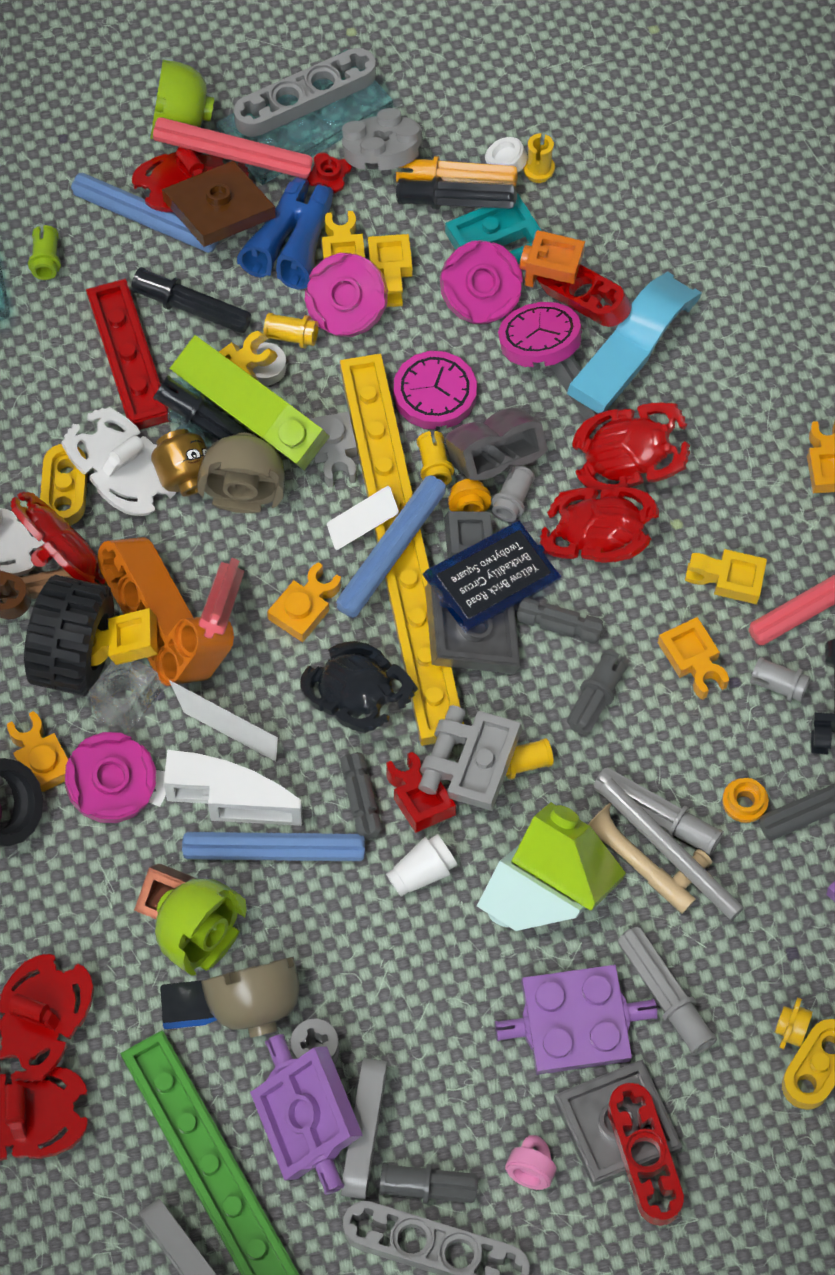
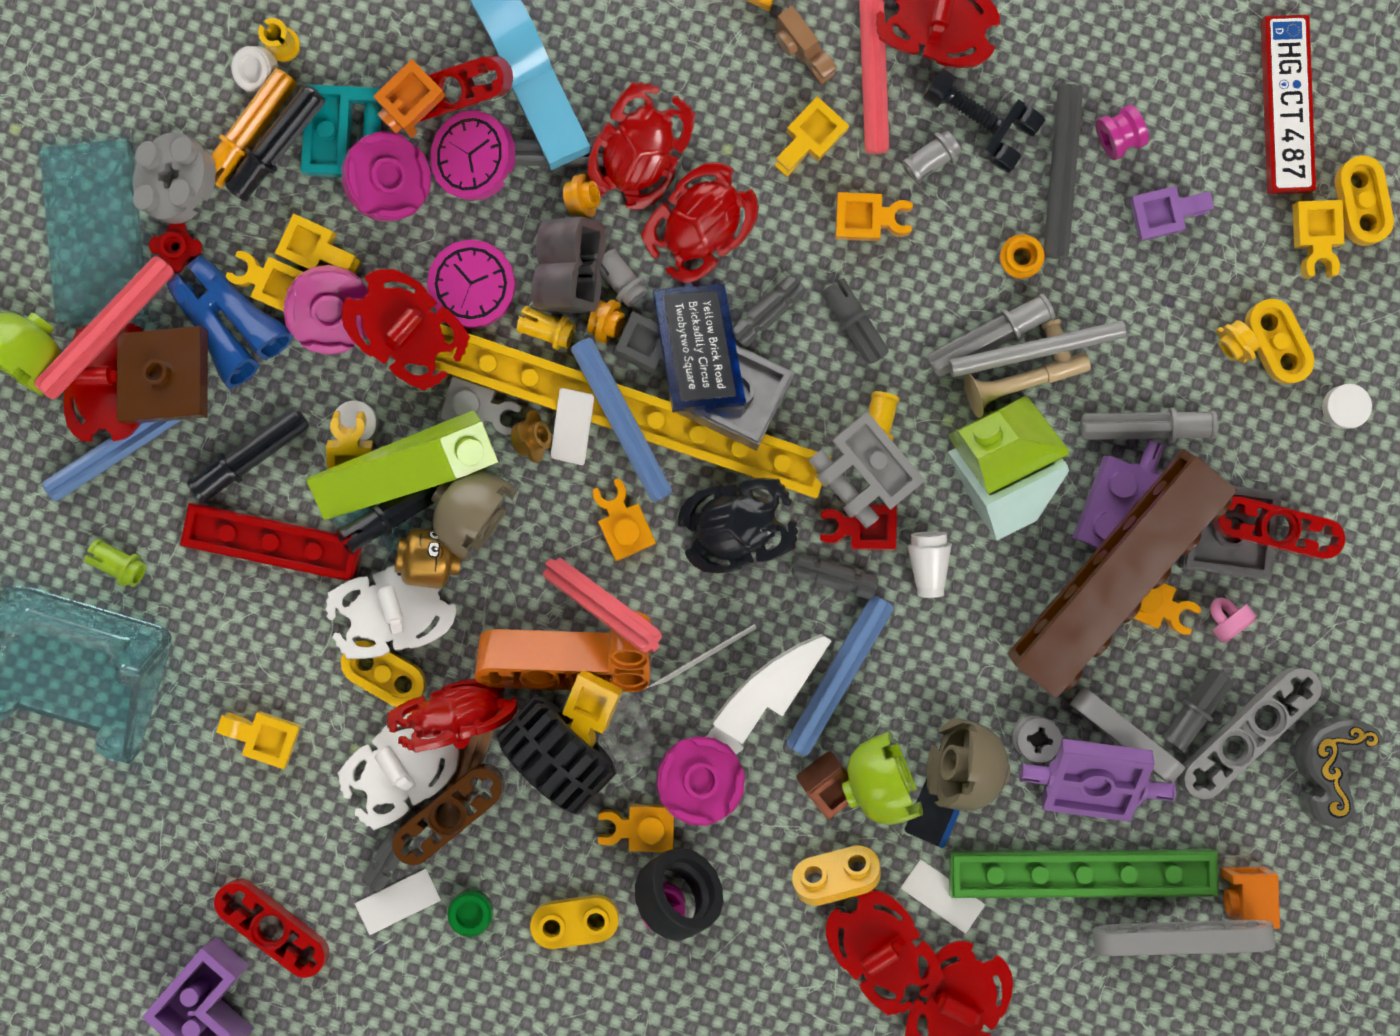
camera: 55 degrees left, 25 degrees up
(86, 938) = (837, 878): none -> yellow plate
(118, 1034) = (933, 891): none -> white sticker
(291, 329) = (334, 379): yellow pin -> none
(301, 86) = (66, 221): light grey beam -> none
(326, 489) = (531, 437): none -> pearl gold plate
(365, 348) = (403, 327): none -> red shield
(505, 1085) = (1159, 606): none -> light orange plate
(512, 1022) = (1122, 573): none -> reddish brown brick
(561, 428) = (581, 196): none -> light orange plate
(802, 1165) = (1347, 406): none -> white tile
(803, 520) = (798, 39): none -> medium nougat plate

